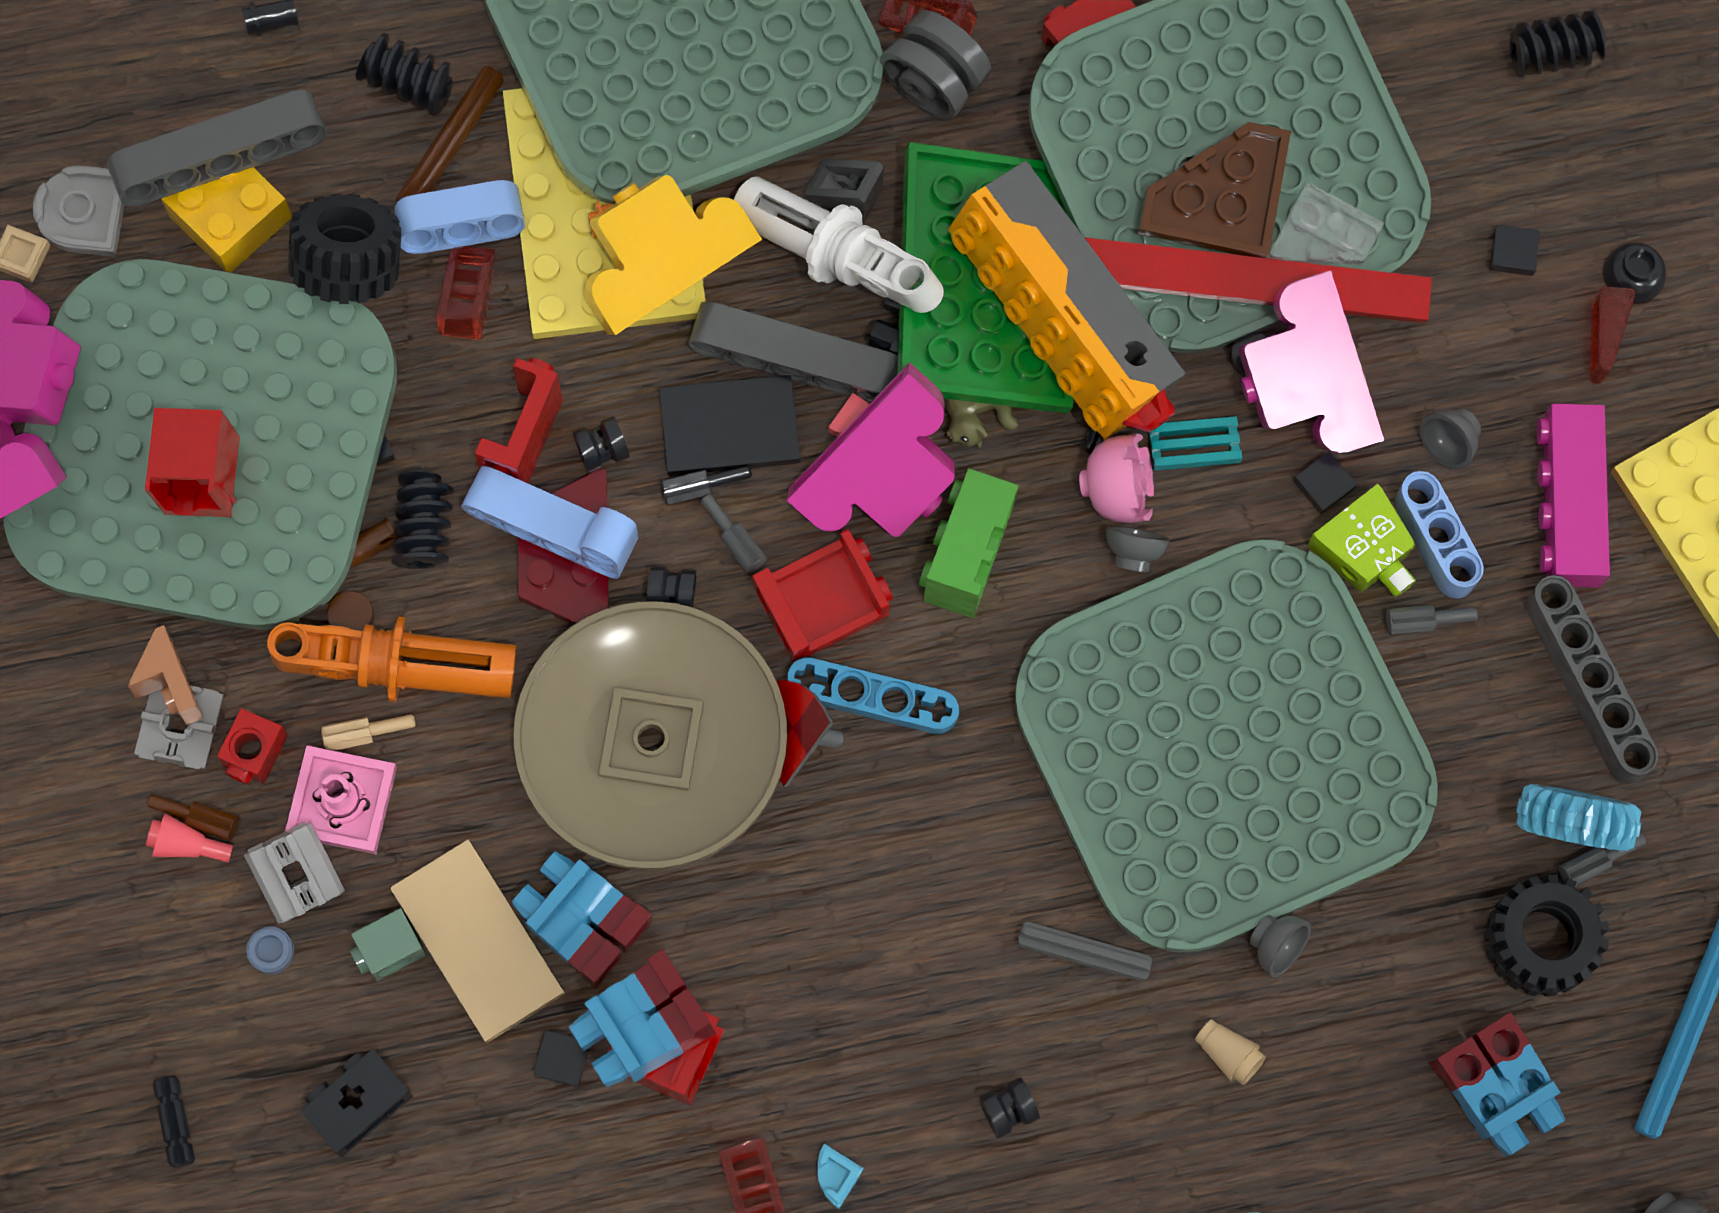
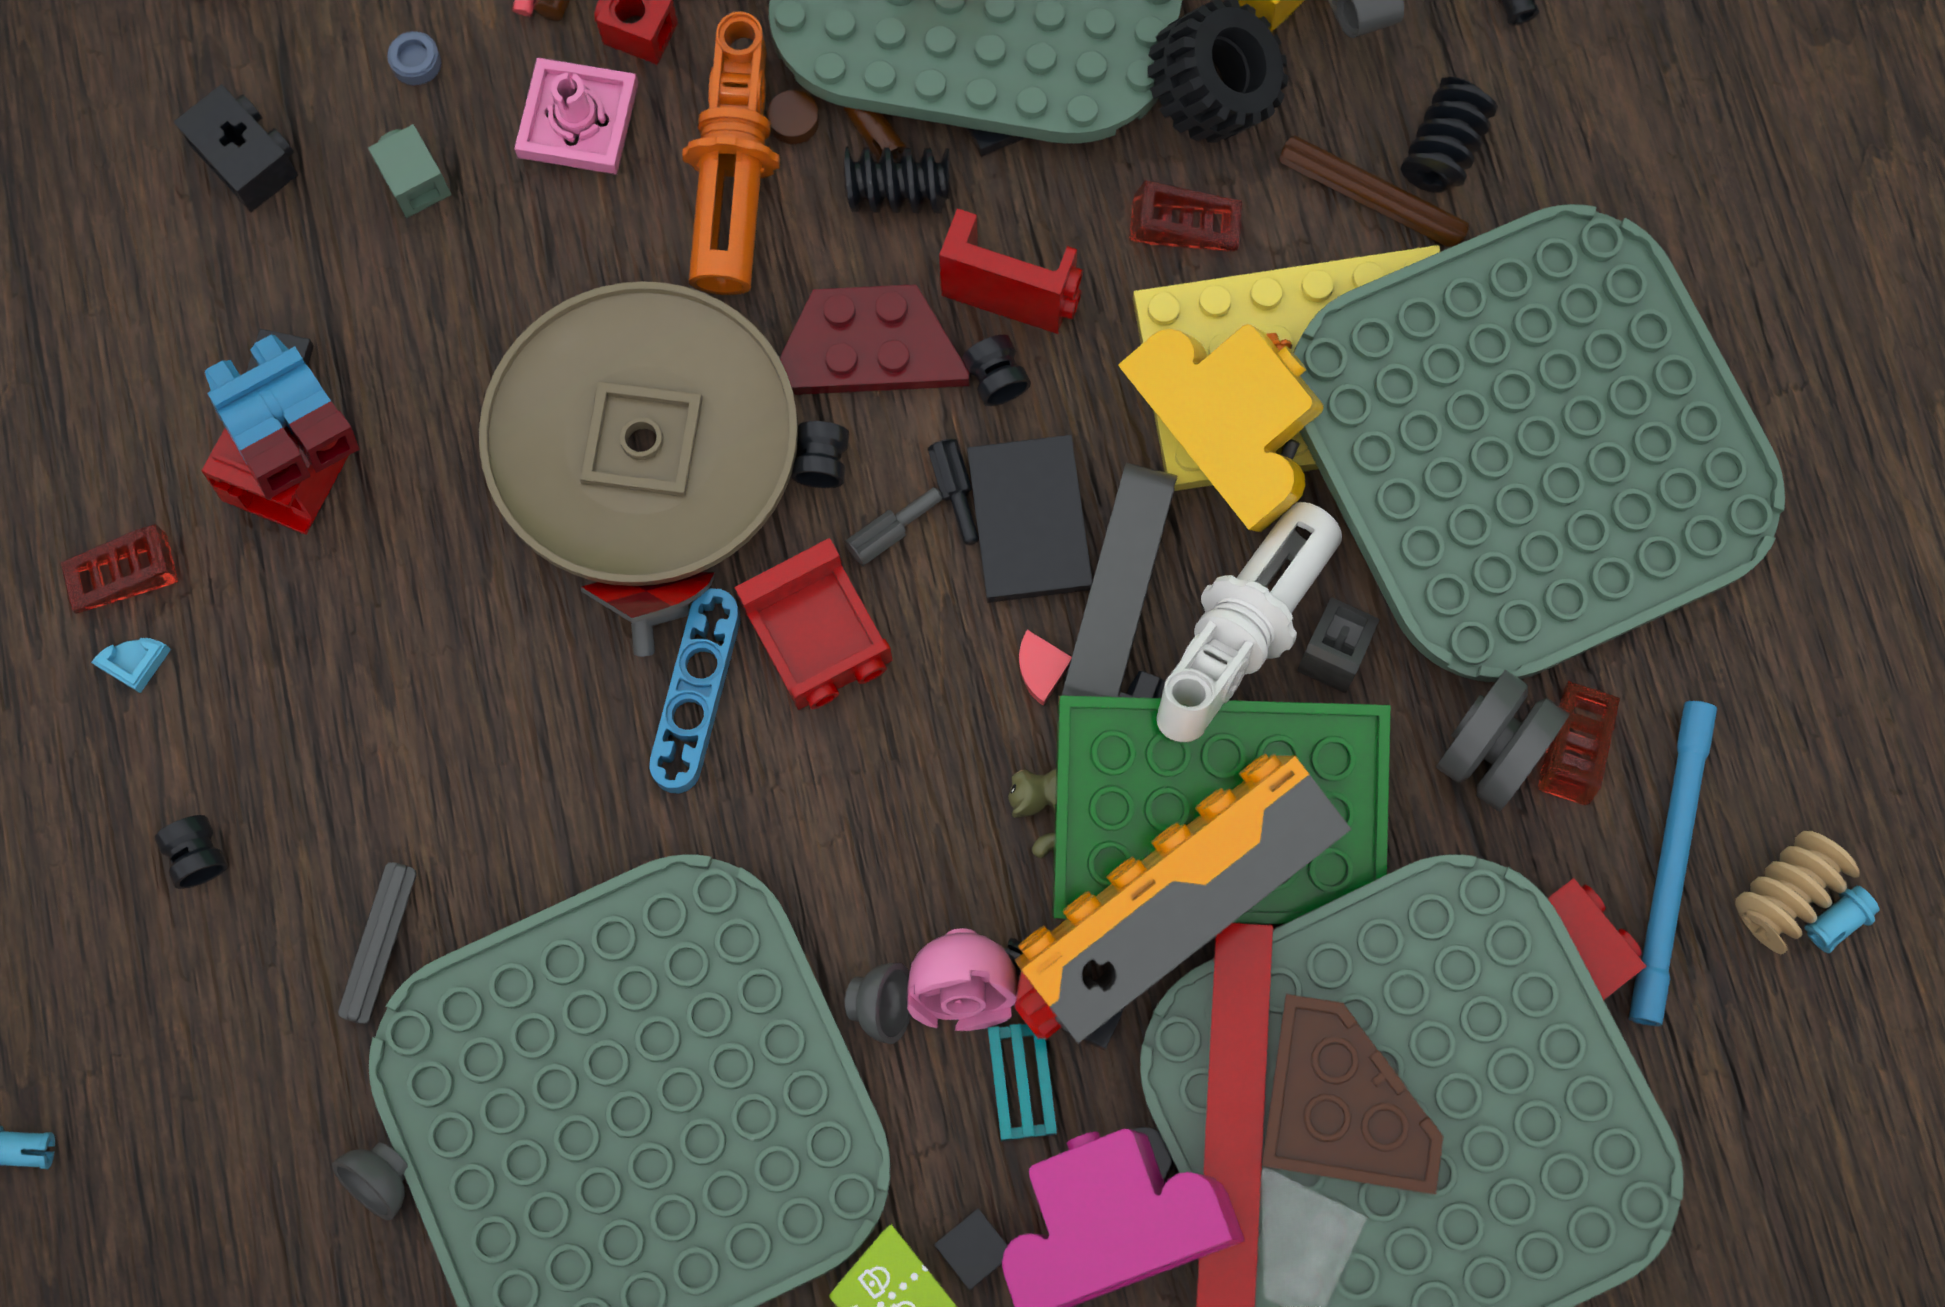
camera: 95 degrees right, 0 degrees up
(320, 877) = (516, 71): light grey piece -> none
(360, 731) = (656, 132): tan axle -> none
(460, 216) = (1272, 202): light blue beam -> none
(477, 941) = (416, 266): tan tile -> none
(573, 905) = (431, 372): dark azure hips -> none
(587, 538) = (867, 353): light blue beam -> none
(881, 461) = (970, 682): dark pink brick -> none
(968, 542) = (878, 794): bright green wedge -> none
(1231, 1052) = (245, 1118): tan cone -> none

